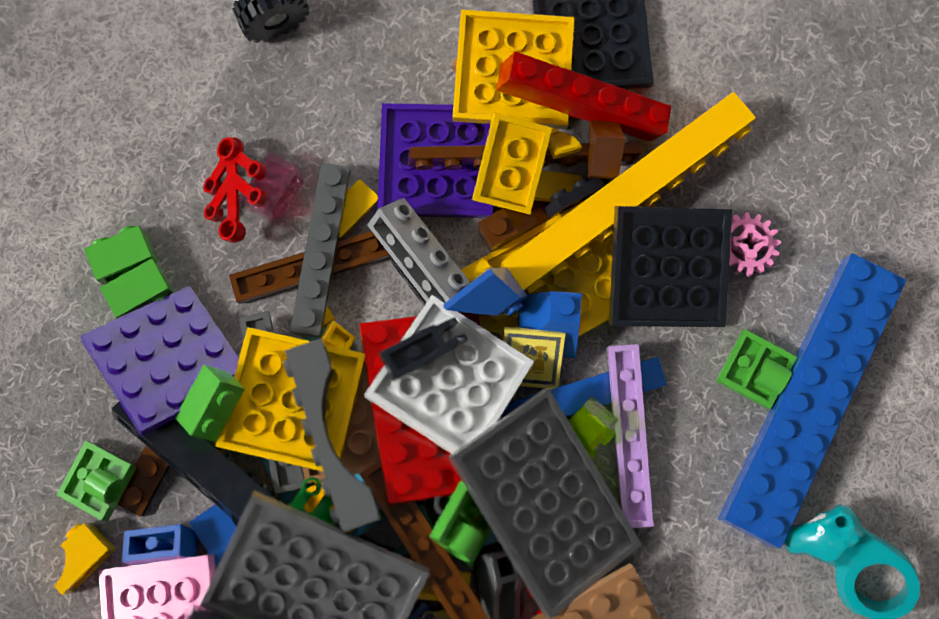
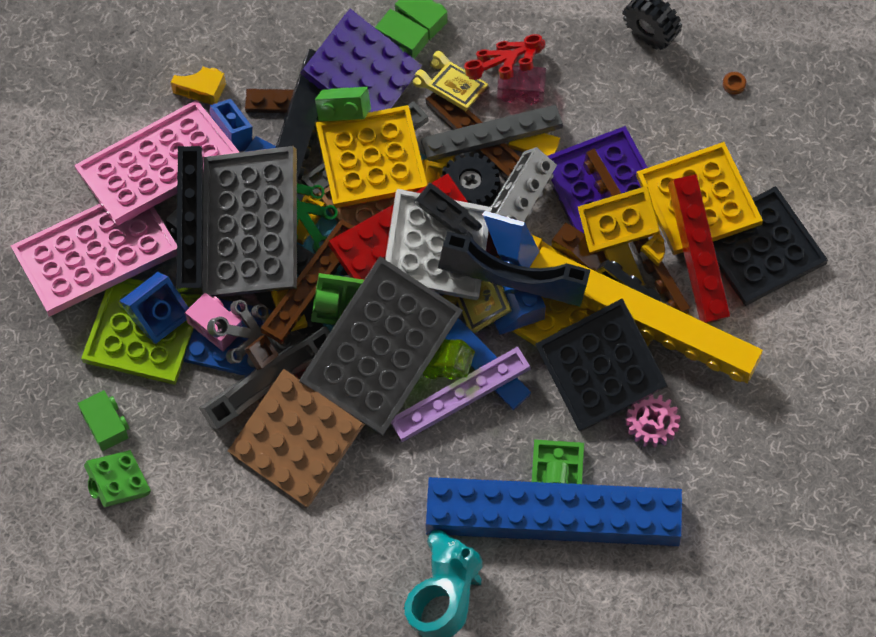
camera: 65 degrees right, 15 degrees down
(96, 481) = (256, 70): bright green plate -> none
(230, 264) = (450, 82): none -> light yellow flag
(312, 374) = (393, 156): dark grey arch -> none
(368, 282) = (485, 177): none -> black bush
(496, 351) = (561, 283): none -> black arch
(605, 149) = (667, 280): reddish brown slope -> none

